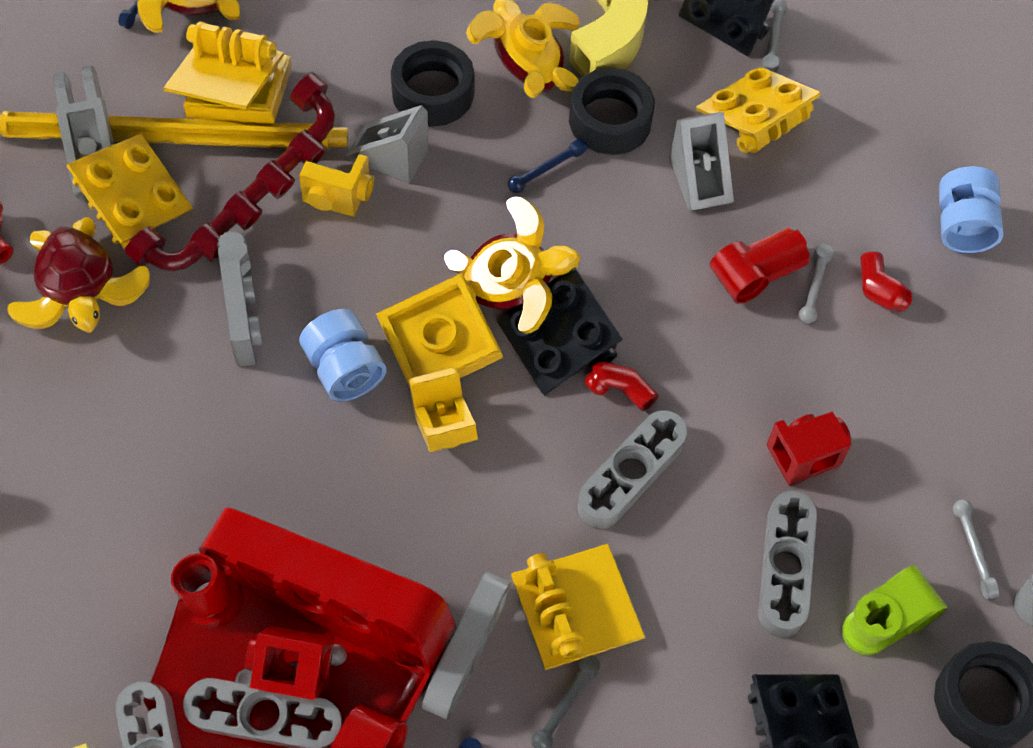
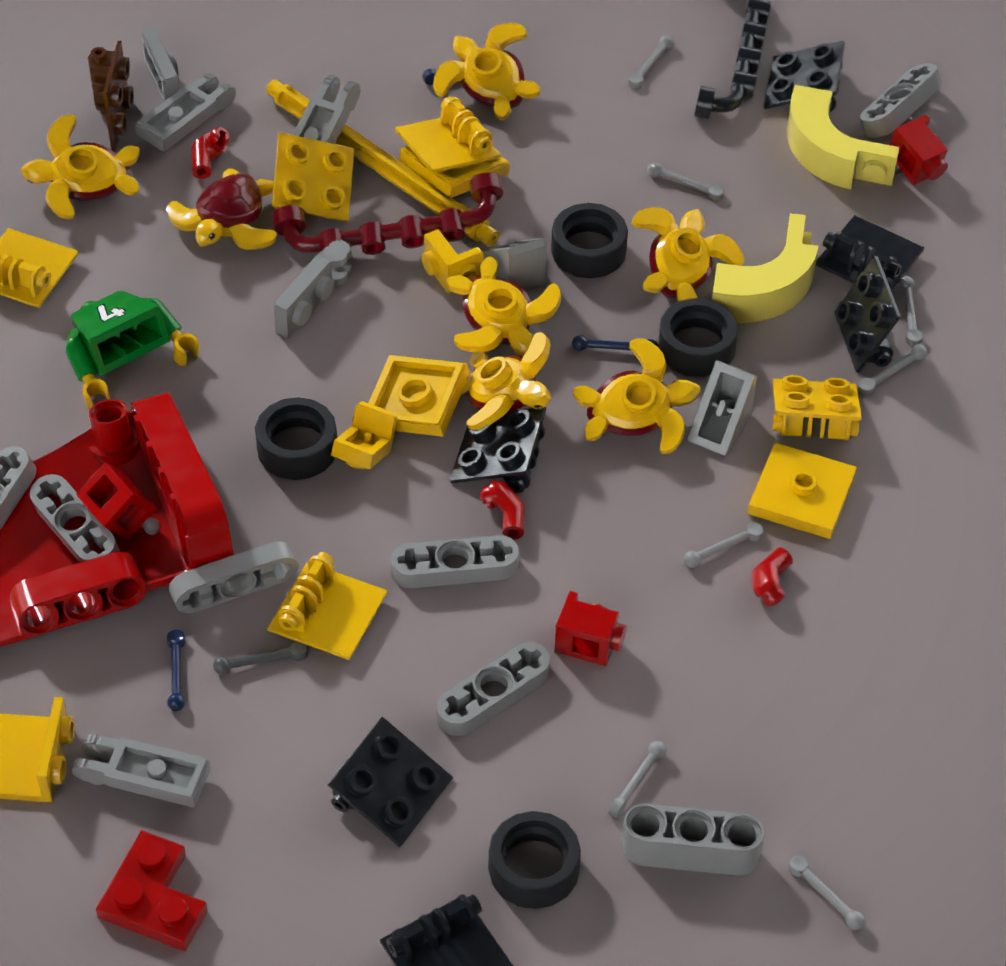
camera: 45 degrees right, 10 degrees down
(102, 484) = (118, 331): none -> green torso
(339, 351) = (338, 362): light blue wheel -> none
(375, 424) = (295, 413): none -> black tyre
(434, 201) = (500, 310): none -> yellow animal
(631, 204) = (638, 401): none -> yellow animal
(749, 269) = (677, 498): red piece -> none
(823, 189) = (802, 490): none -> yellow plate
(896, 608) = (529, 764): lime piece -> none
(970, 210) = (892, 571): light blue wheel -> none

